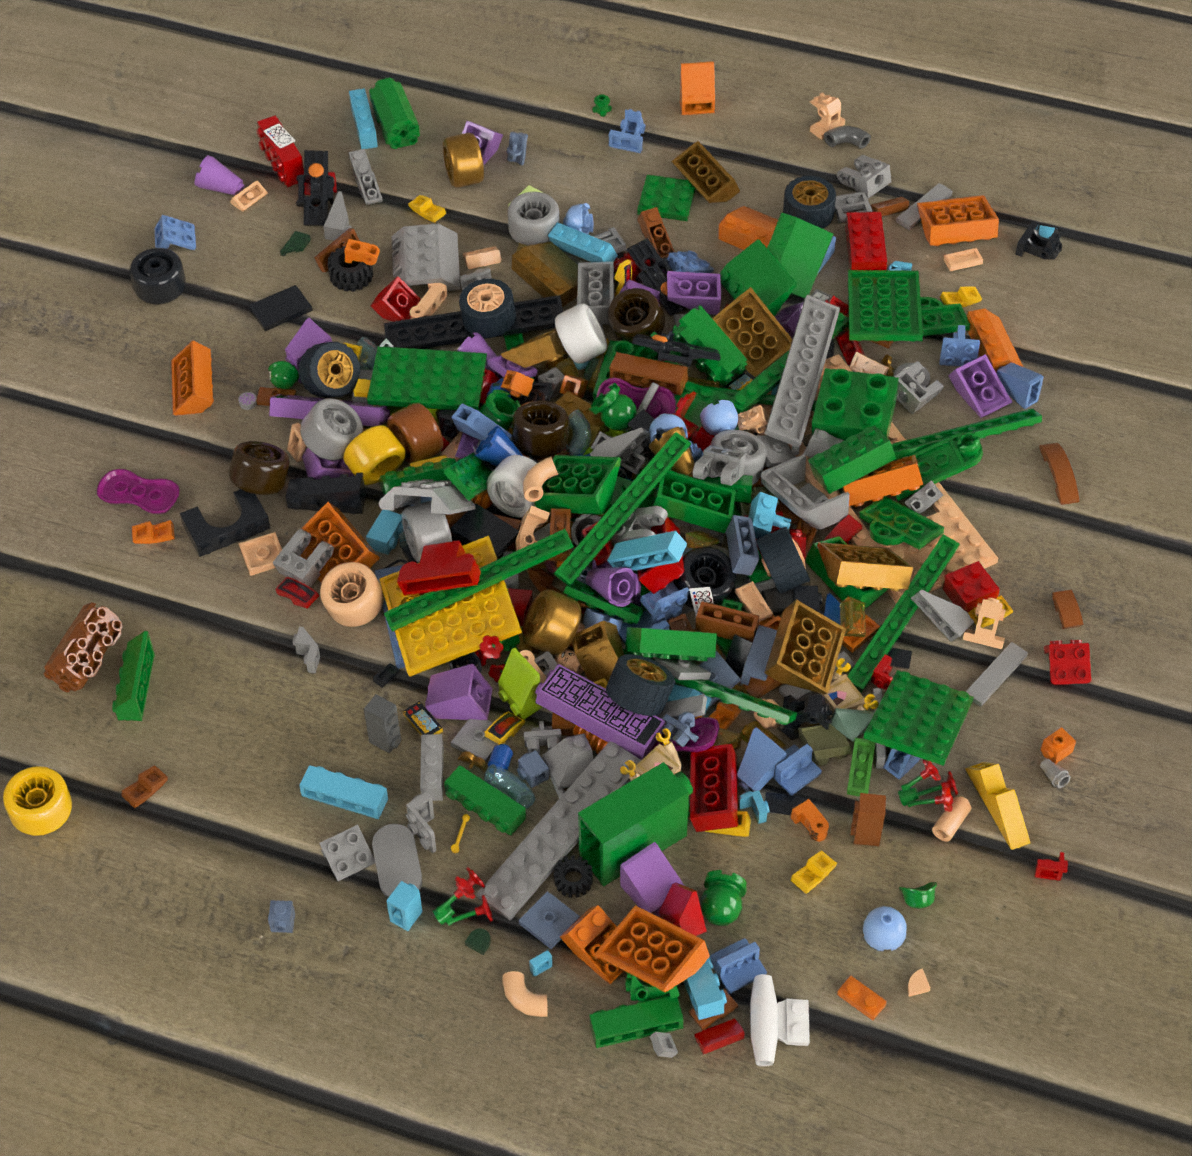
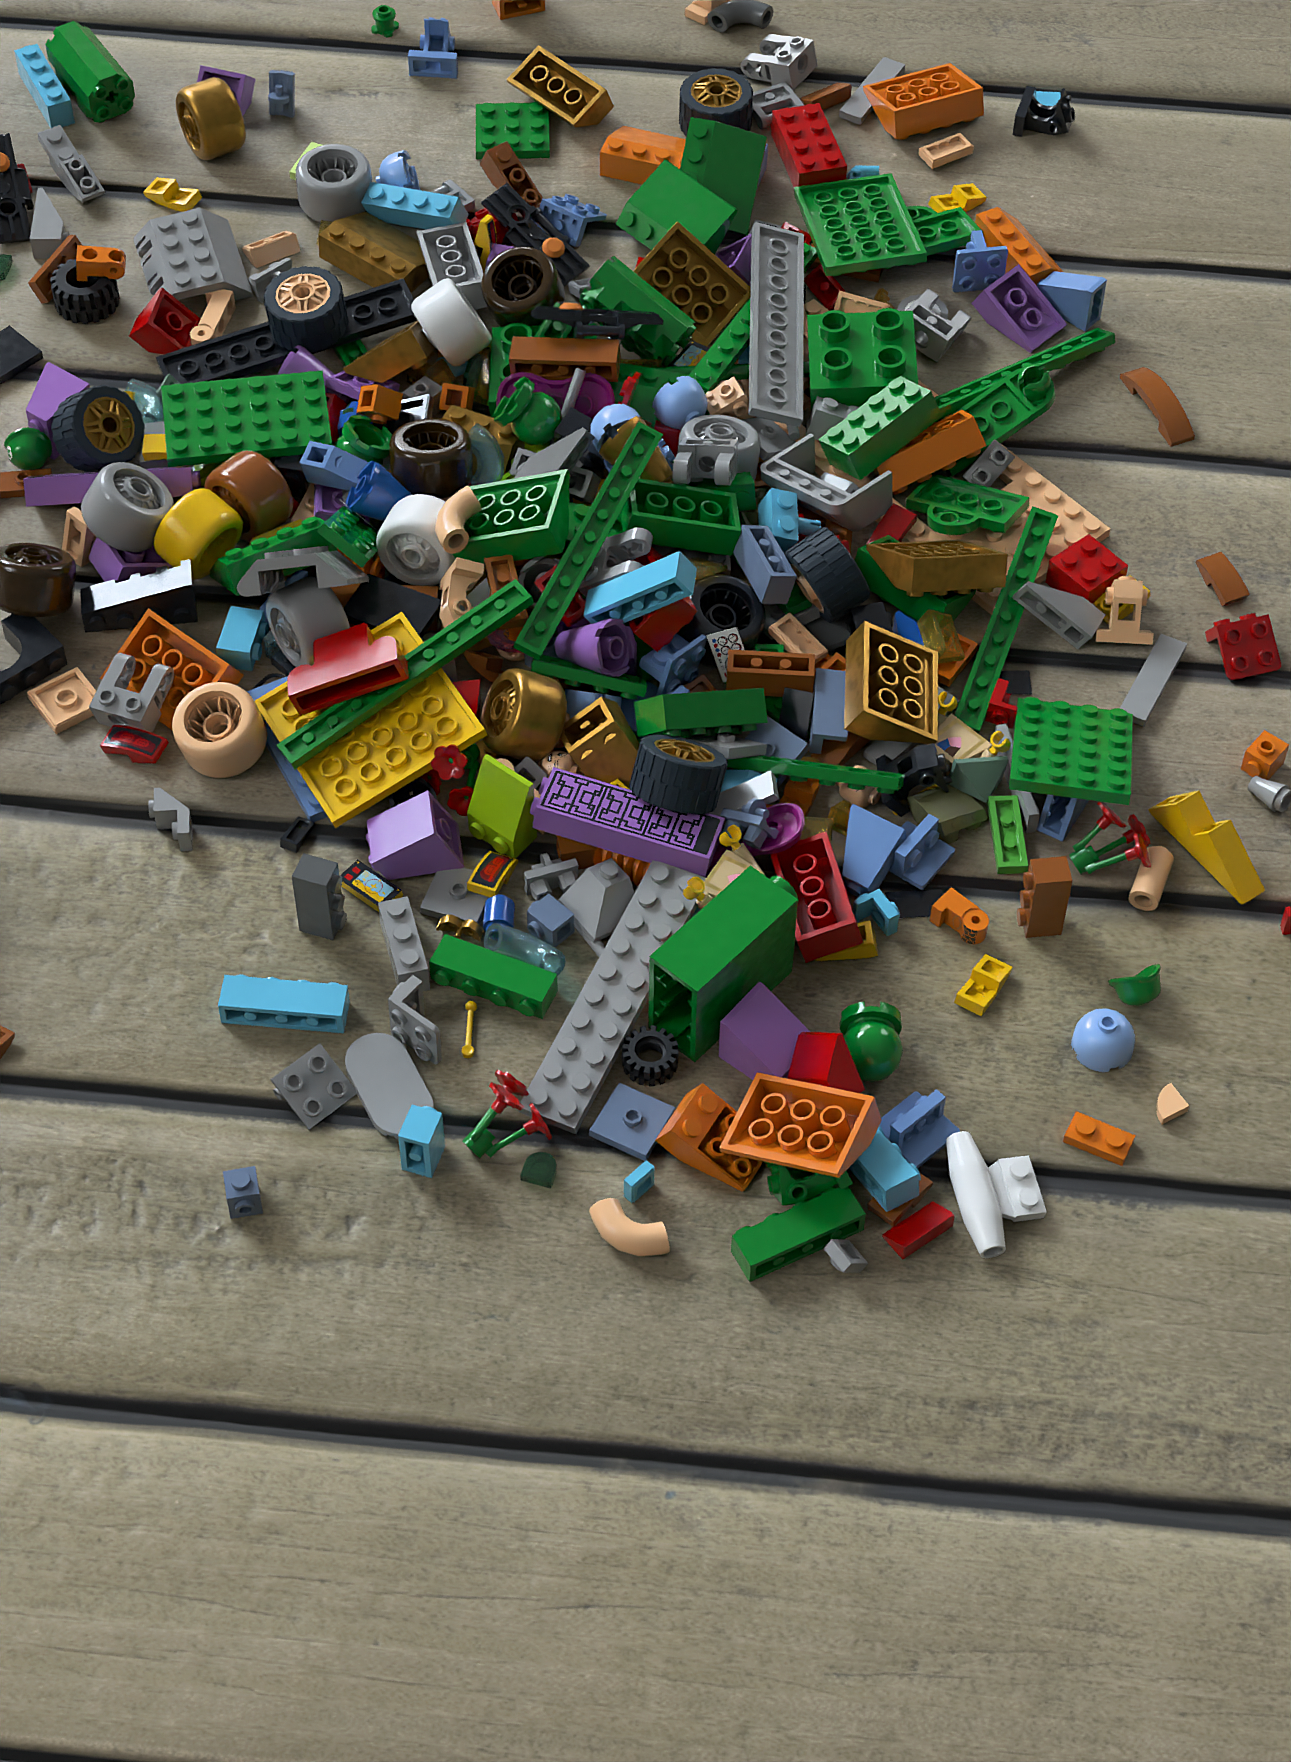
camera: 15 degrees left, 0 degrees up
(694, 290) = (591, 242): medium lavender slope -> none

